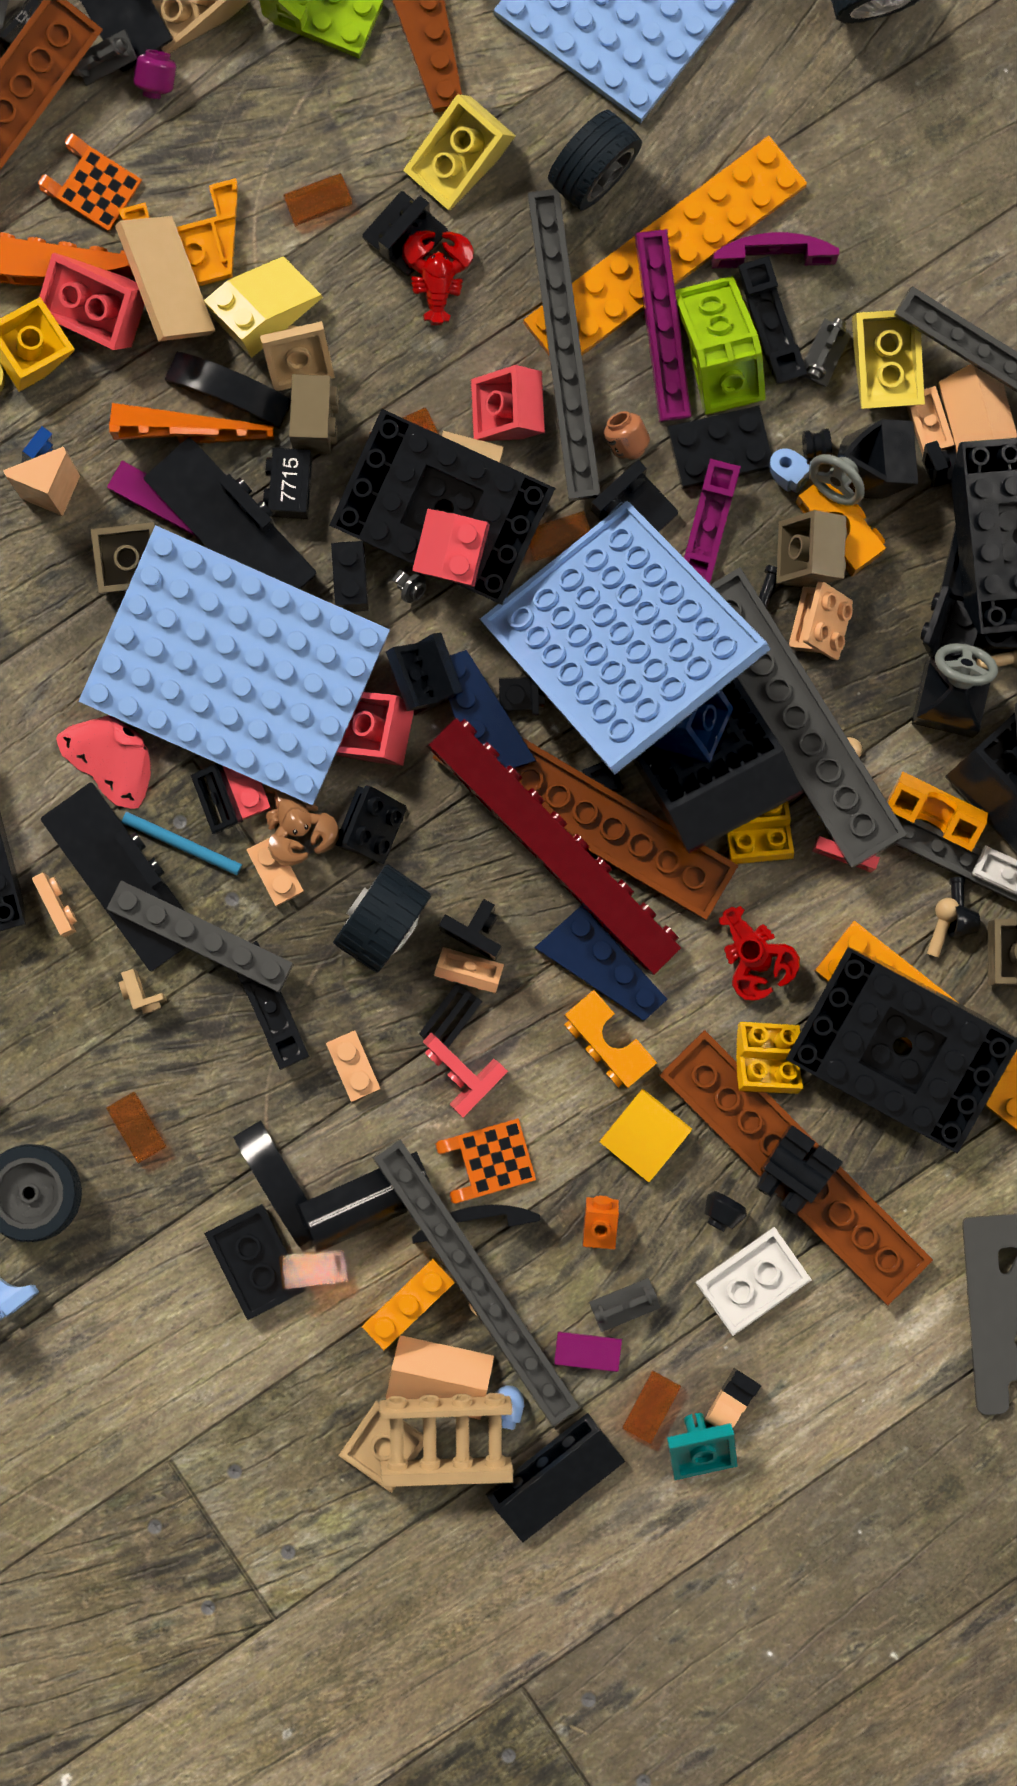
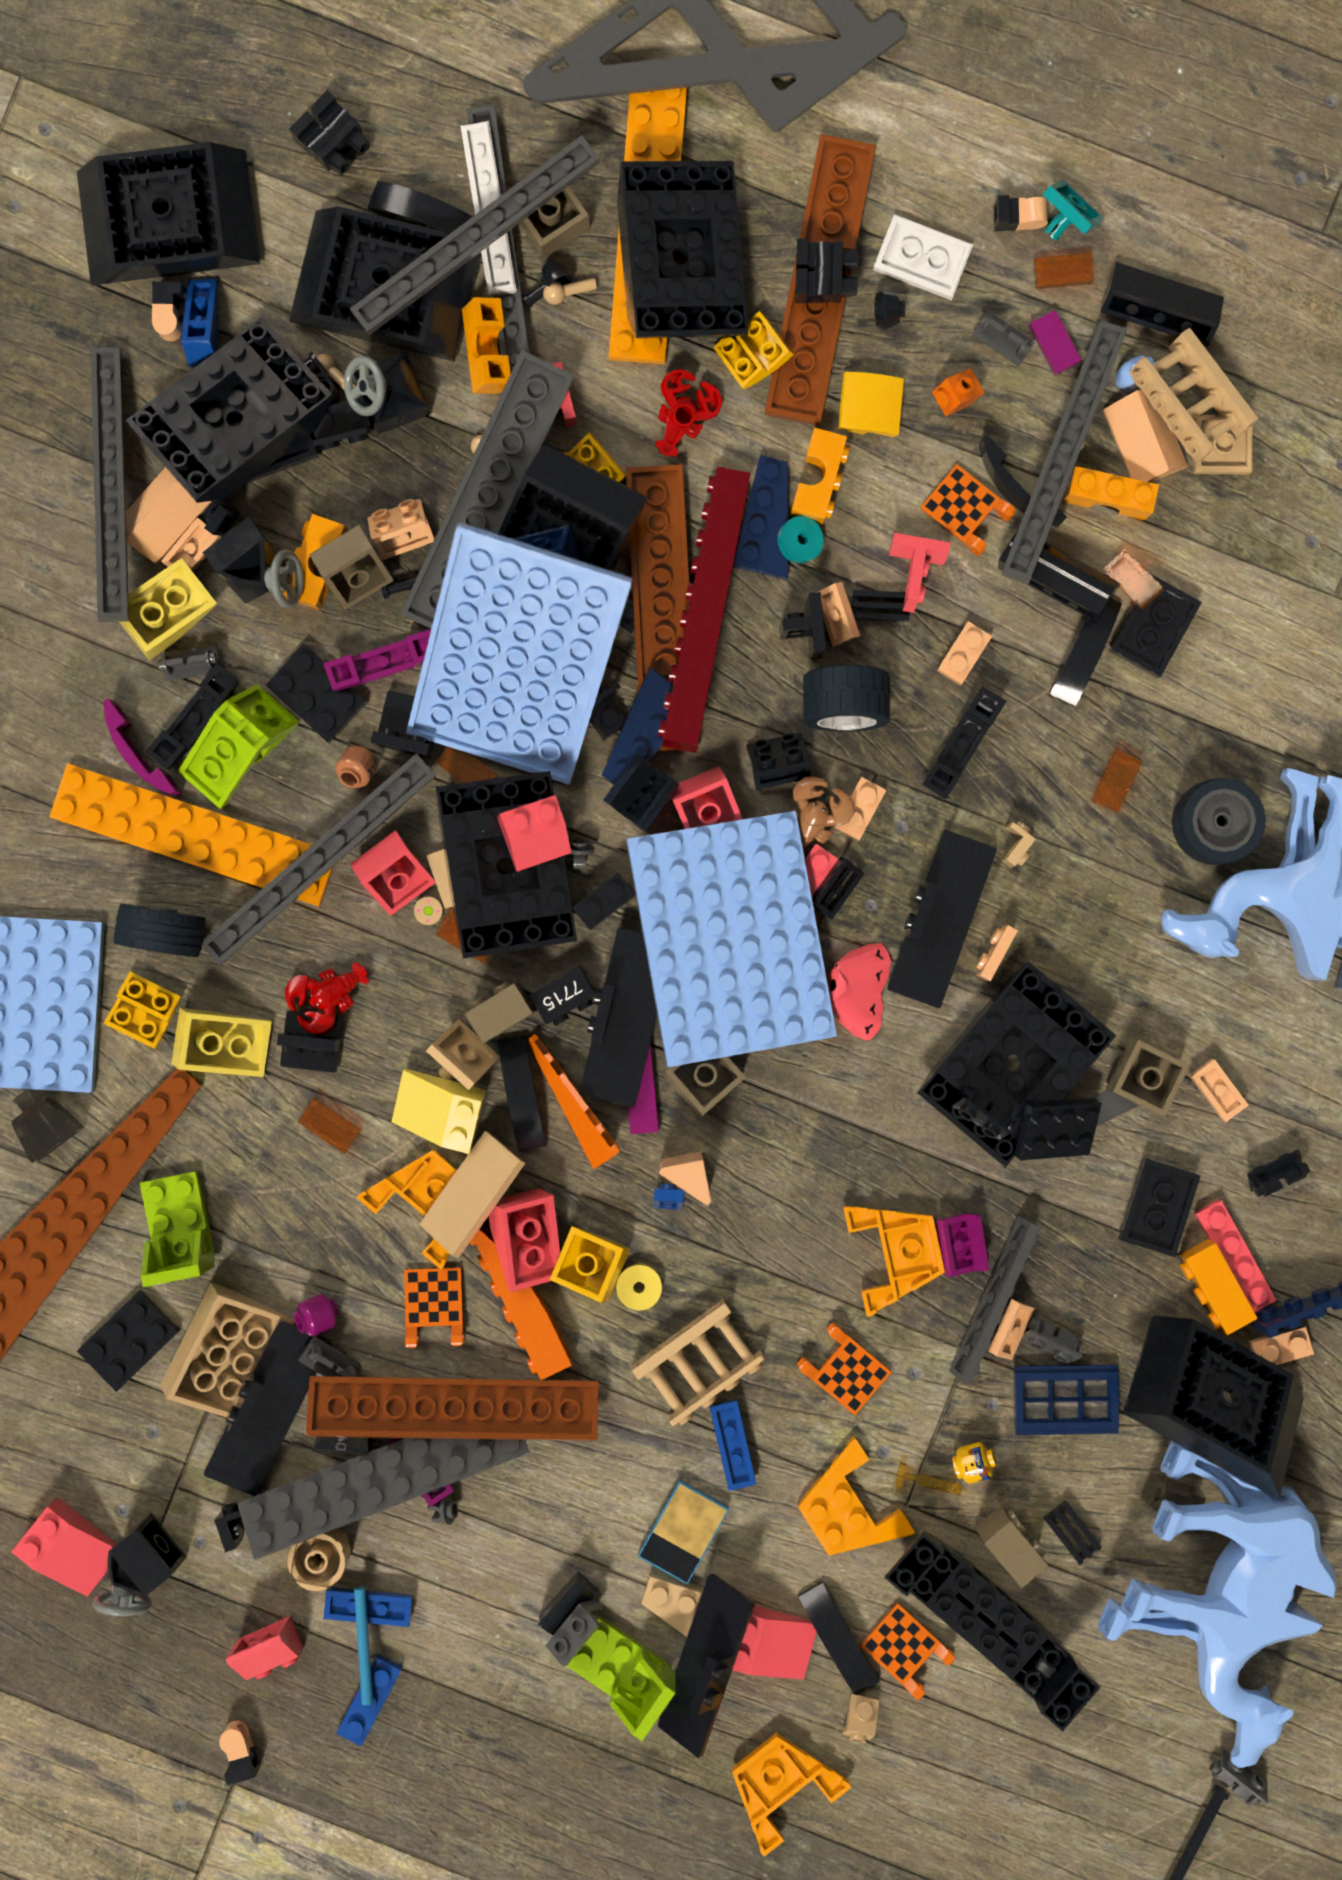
camera: 120 degrees left, 5 degrees up
(181, 843) = (886, 891): dark azure bar -> none
(200, 936) = (948, 827): dark grey plate -> none
(451, 415) = (428, 911): none -> tan tile
(536, 103) = (143, 1010): none -> yellow slope
(569, 970) = (811, 535): none -> teal piece
(663, 325) = (252, 797): magenta tile -> none
(789, 469) = (299, 628): light blue piece -> none
(816, 443) = (267, 620): black wheel -> none

